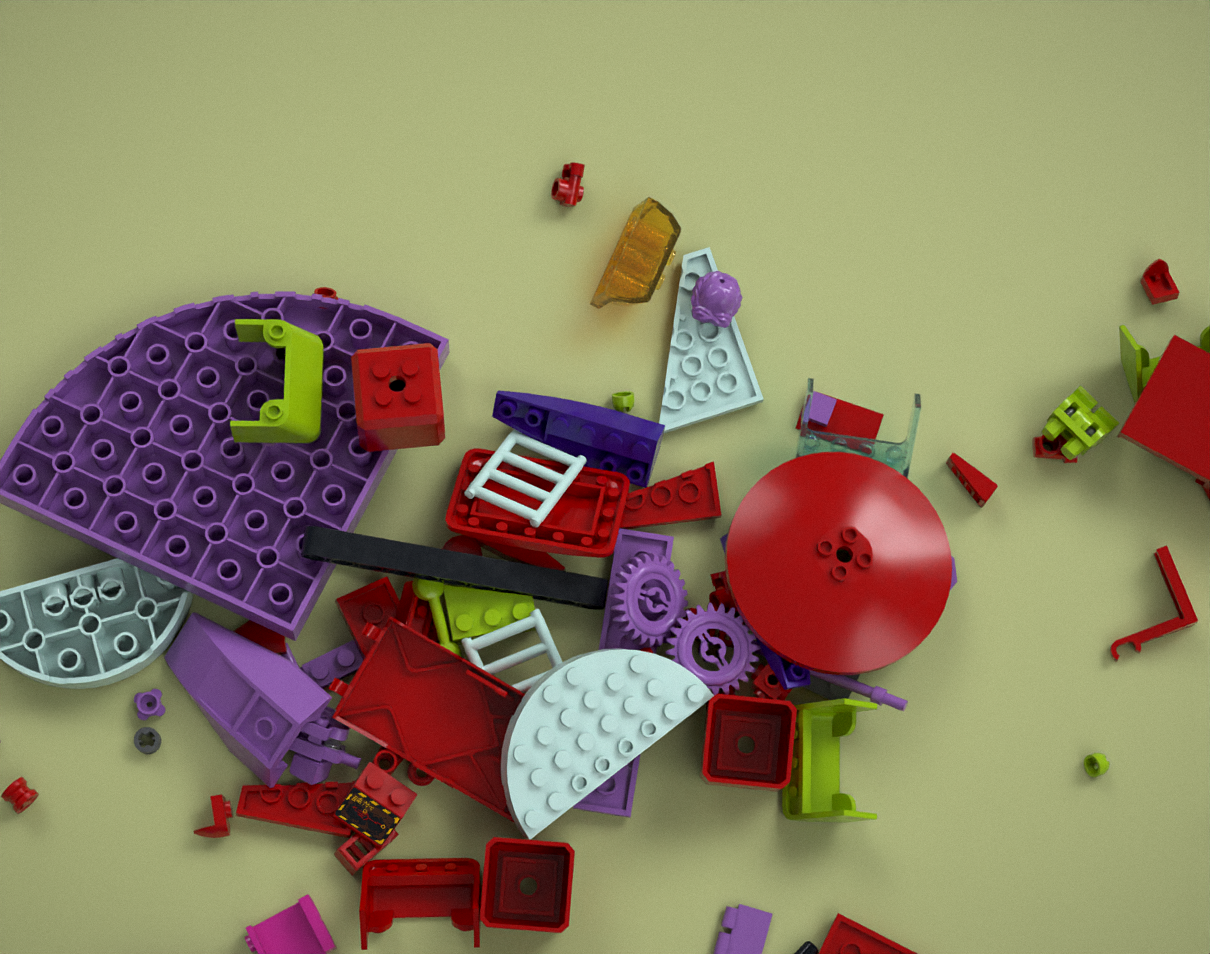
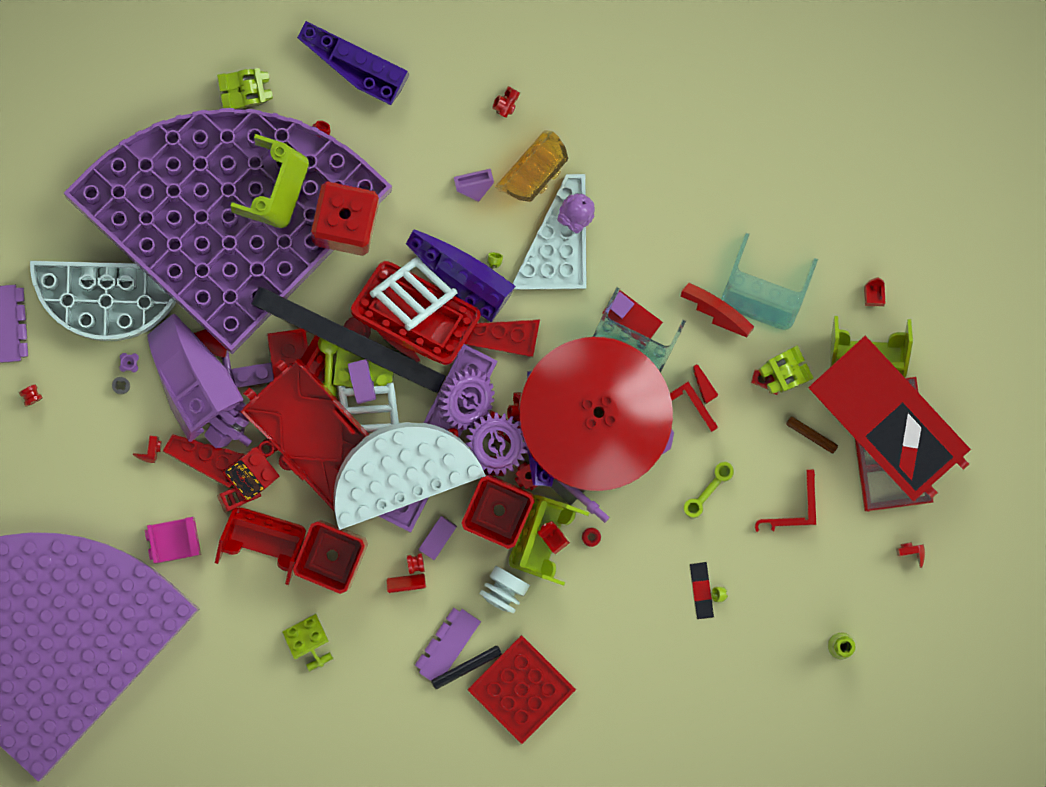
camera: 20 degrees right, 10 degrees up
(200, 274) = (244, 88): none -> lime hips
(347, 196) = (359, 67): none -> dark purple wedge
(493, 620) = (362, 381): none -> medium lavender slope
(561, 308) = (474, 184): none -> medium lavender slope
(647, 893) = (406, 583): none -> red slope
(652, 859) = (415, 563): none -> red wheel
(671, 812) = (437, 537): none -> medium lavender slope
(792, 853) = (504, 589): none -> light aqua wheel
(836, 757) = (553, 537): none -> red bracket
(894, 735) = (585, 537): none -> red plate
(965, 375) = (722, 313): none -> red slope
(972, 508) = (697, 402): none -> red hinge
(1009, 338) = (763, 299): none -> clear light blue windscreen
(1041, 593) = (723, 472): none -> lime piece
(1069, 768) = (701, 590): none -> black sticker
(1143, 502) = (812, 435): none -> reddish brown axle

